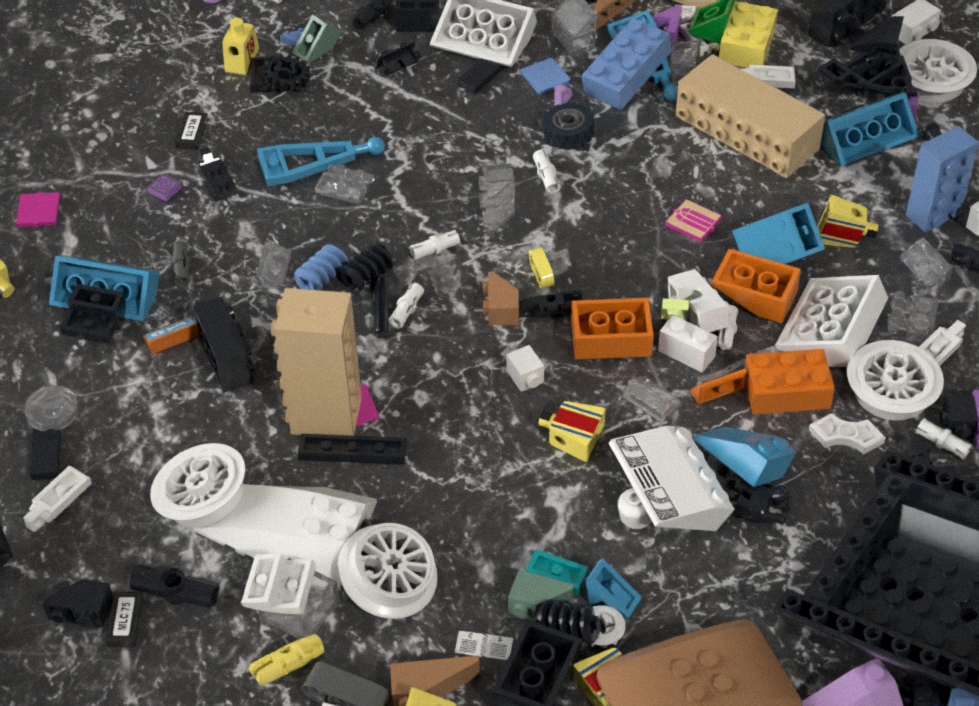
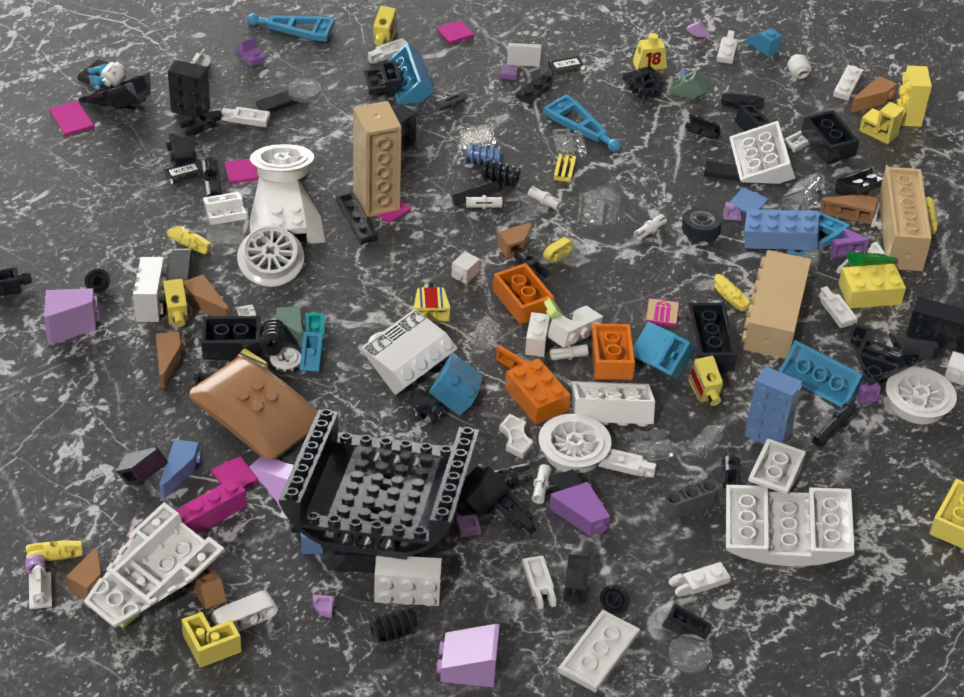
camera: 60 degrees right, 5 degrees down
(30, 556) = (201, 121): none -> black hinge
(31, 287) = (385, 51): none -> white hinge
(145, 159) = (524, 54): none -> white slope
(165, 546) = (241, 171): none -> dark pink piece
(390, 204) = (566, 160): none -> light yellow tile
(698, 148) = (731, 293): none -> light yellow hinge
(768, 188) = (711, 333): none -> black brick

